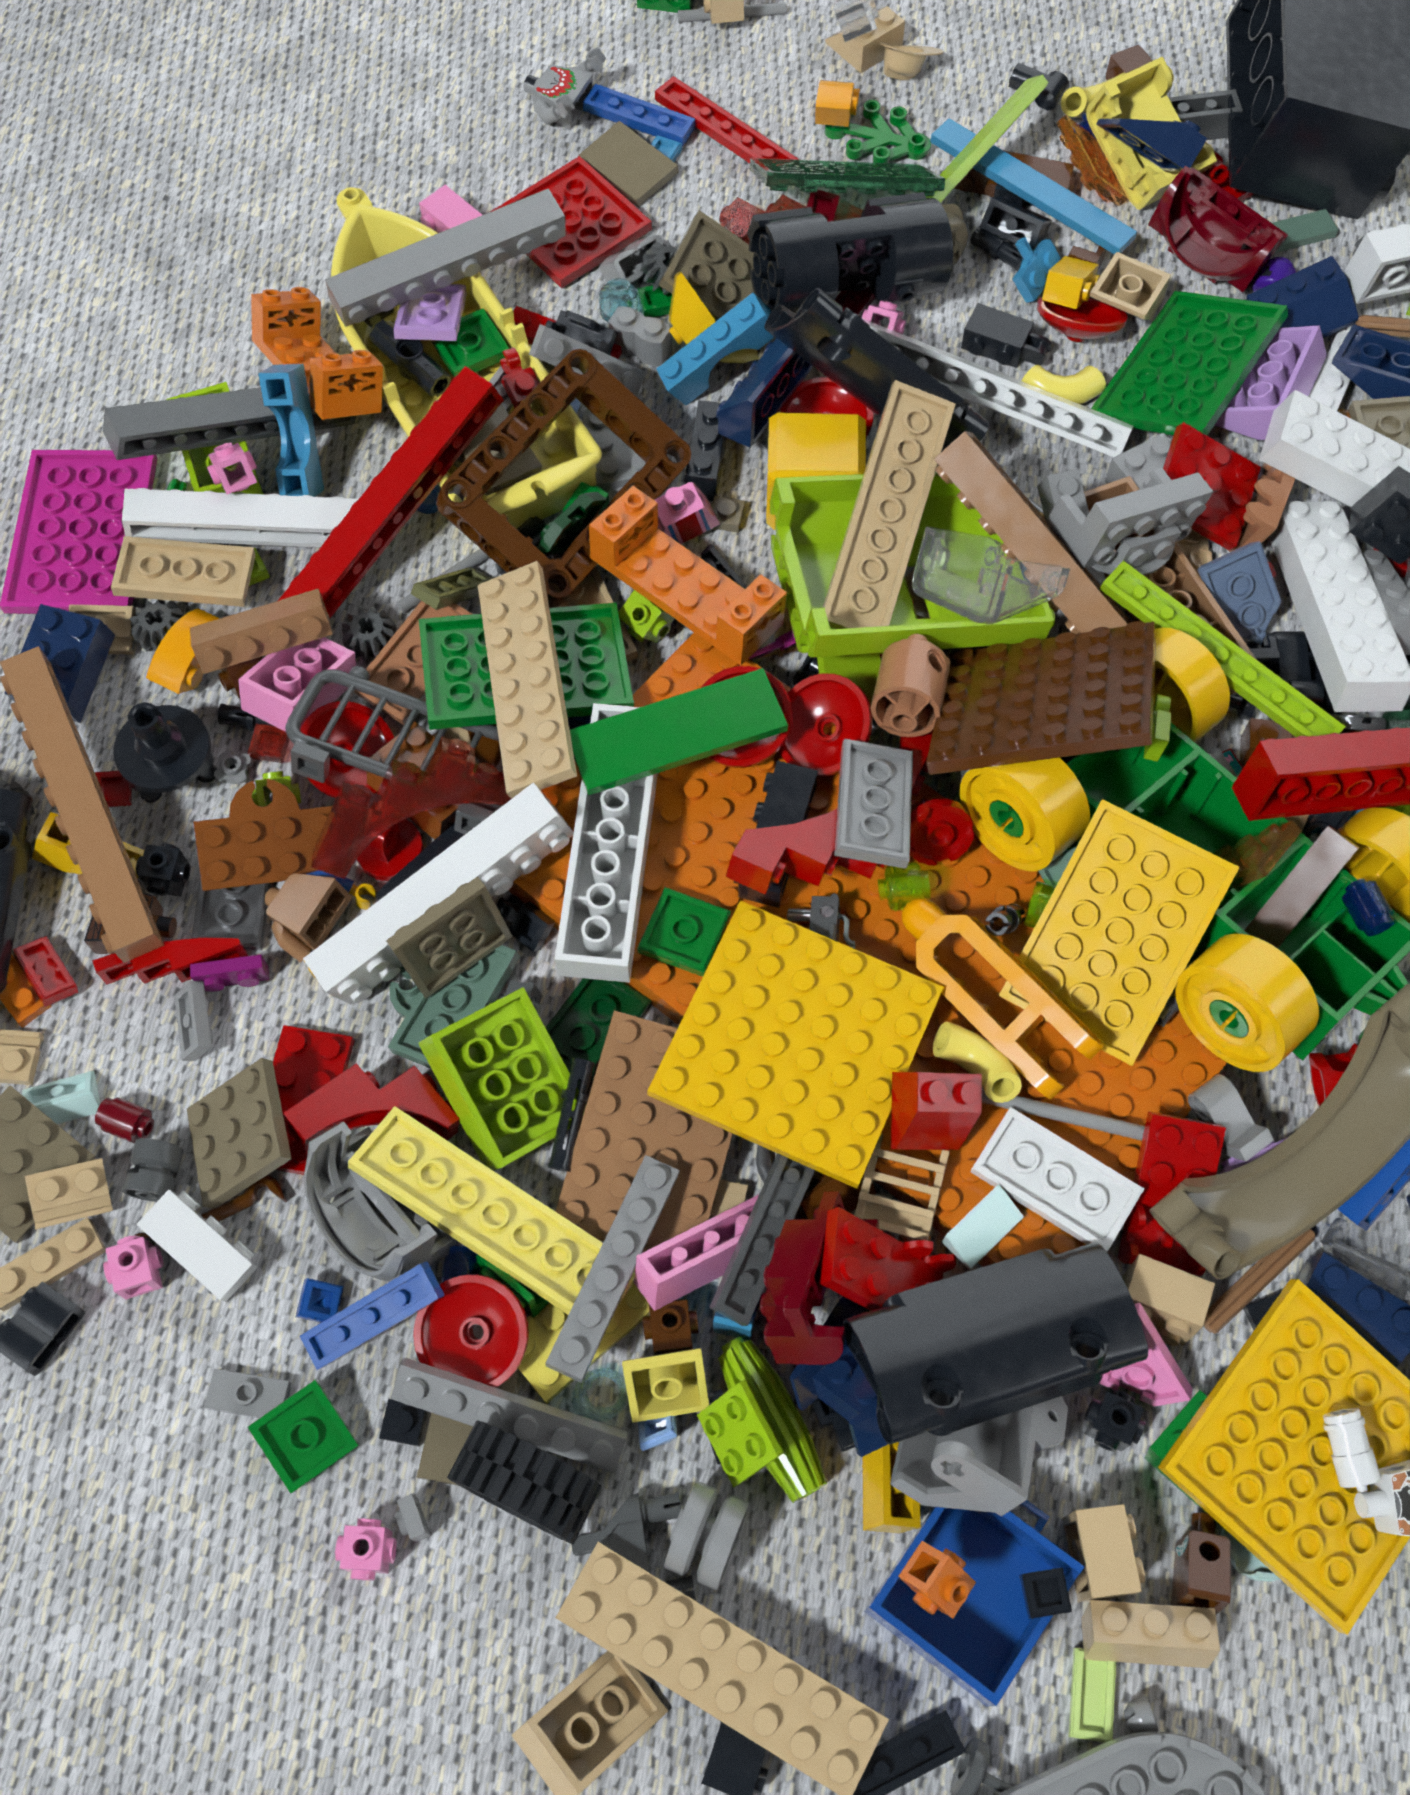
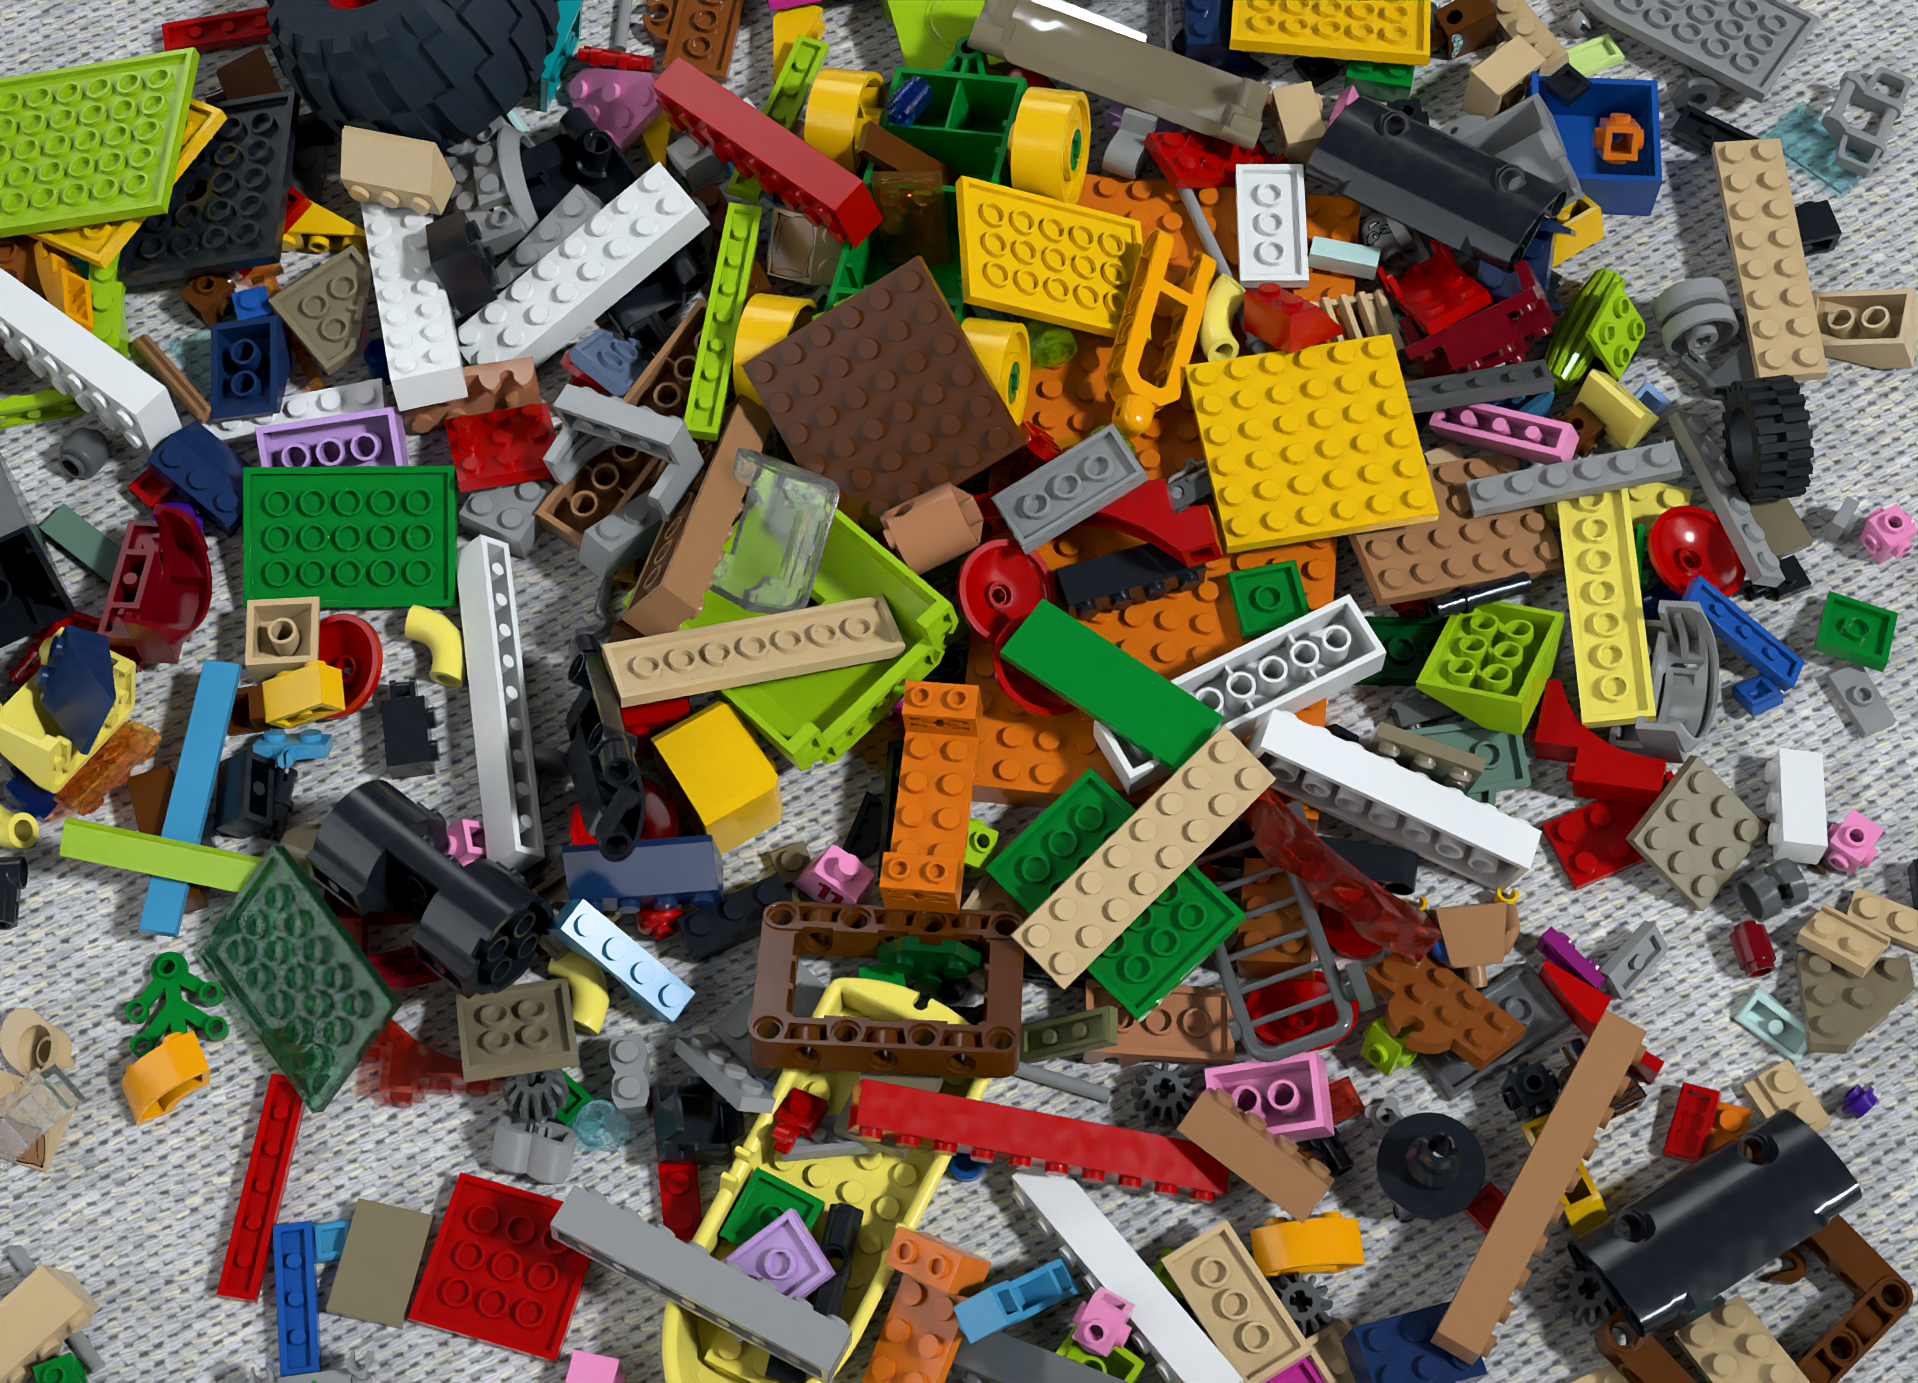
camera: 125 degrees left, 0 degrees up
(687, 312) = (598, 1012): yellow slope -> none
(1005, 919) = (1087, 360): black pin -> none

